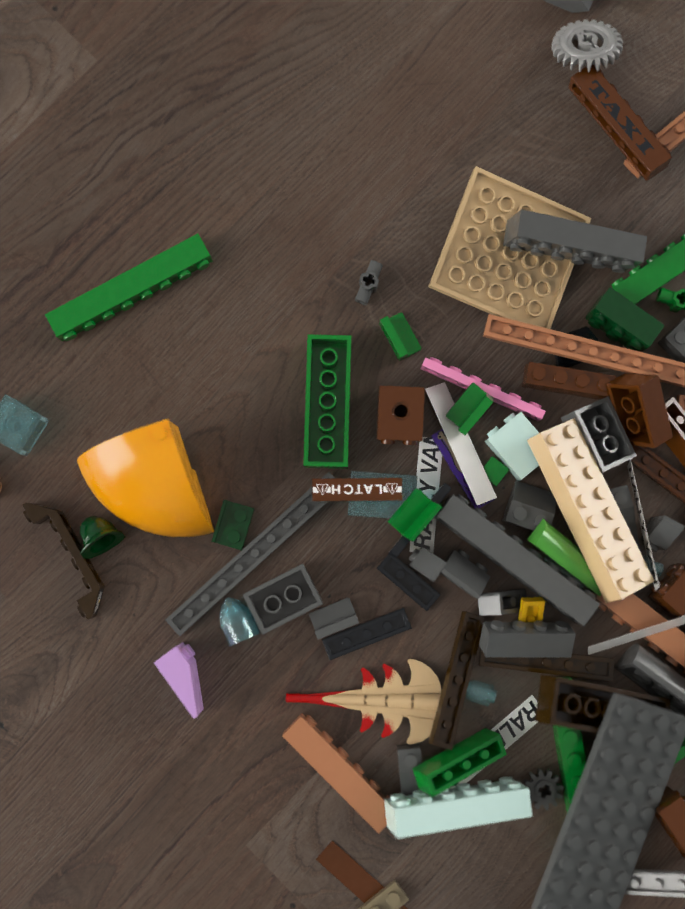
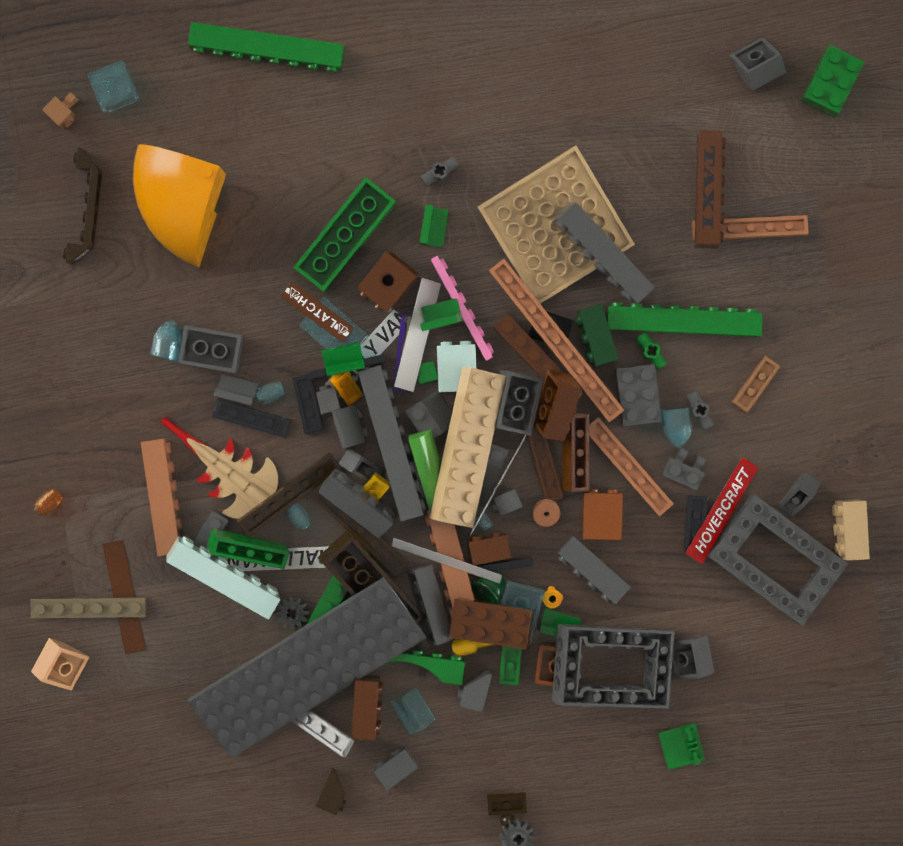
camera: 35 degrees right, 5 degrees up
(98, 536) = (115, 209): dark green piece -> none
(181, 673) = (103, 347): lavender slope -> none
(233, 525) = (215, 272): dark green plate -> none
(235, 859) = (47, 501): none -> clear orange brick
(245, 561) = (204, 304): dark grey plate -> none
(366, 597) = (270, 392): none -> clear light blue brick
(435, 540) = (346, 388): none -> light orange tile
(587, 51) = (725, 124): light grey gear -> none

